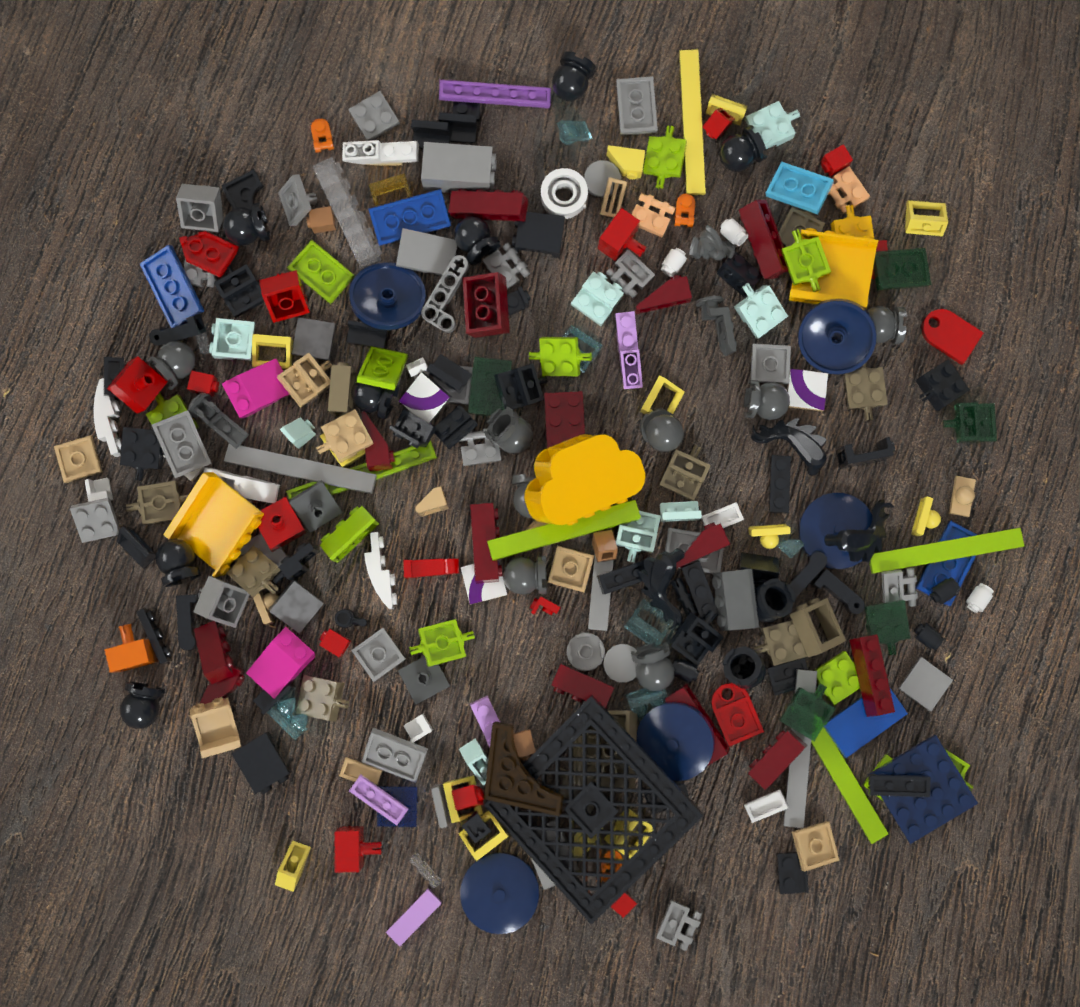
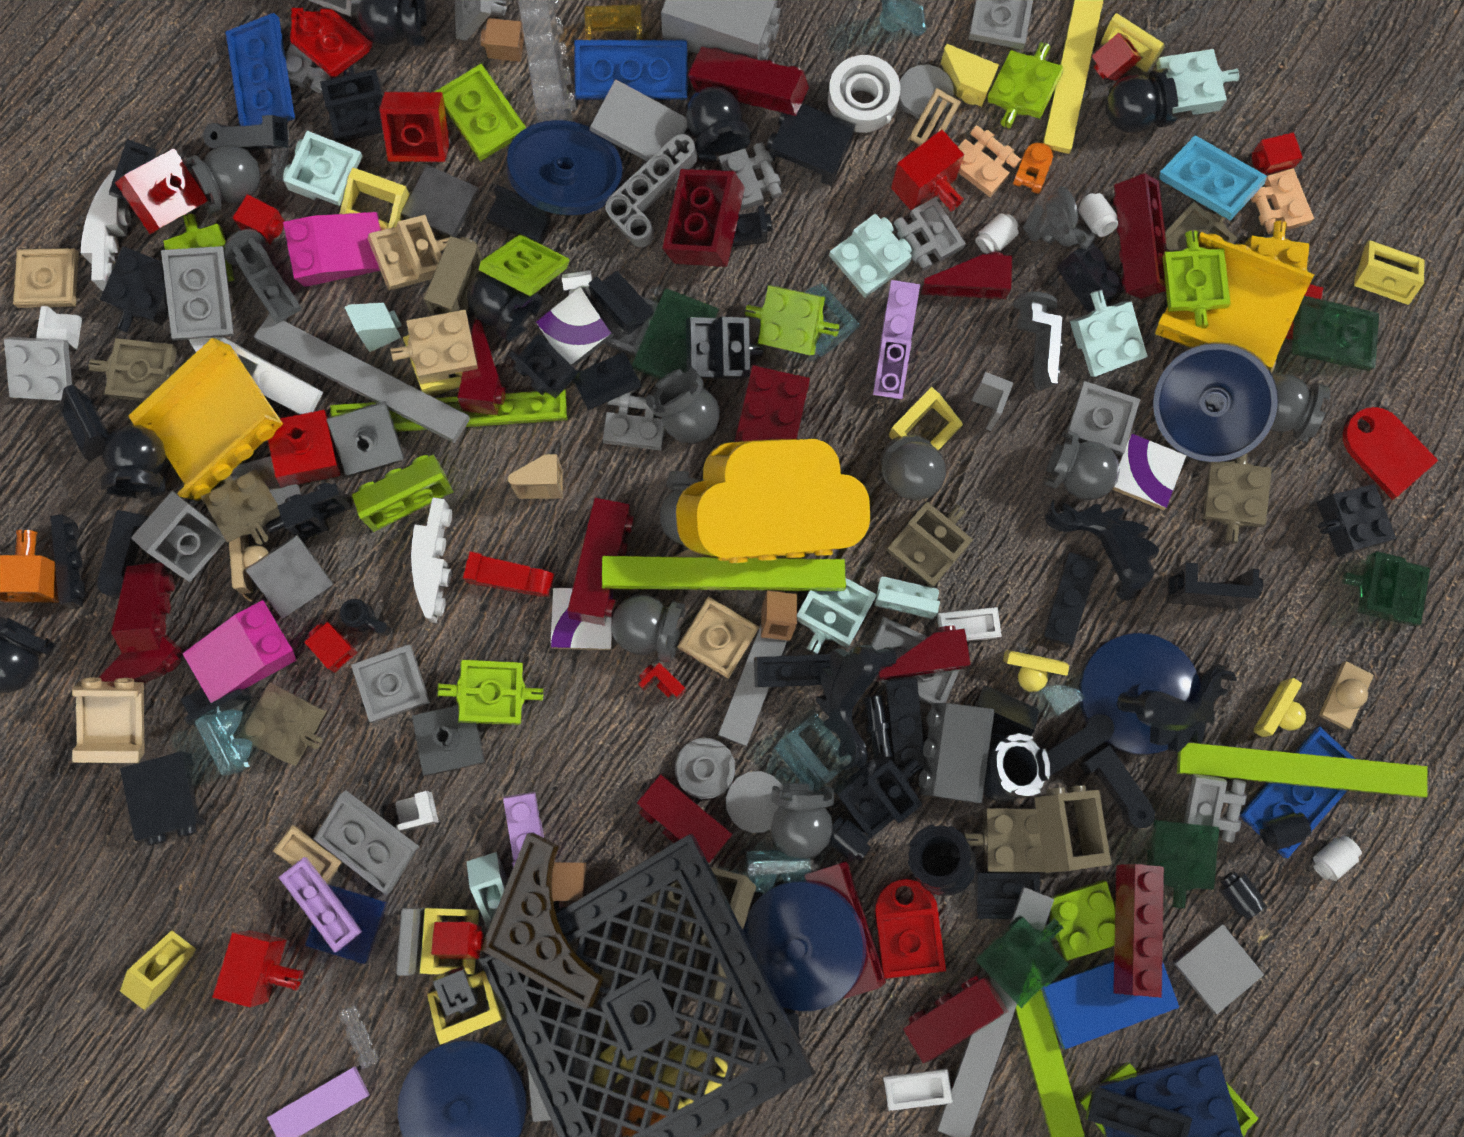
camera: 15 degrees right, 5 degrees down
(699, 368) = (992, 393): none -> light grey panel

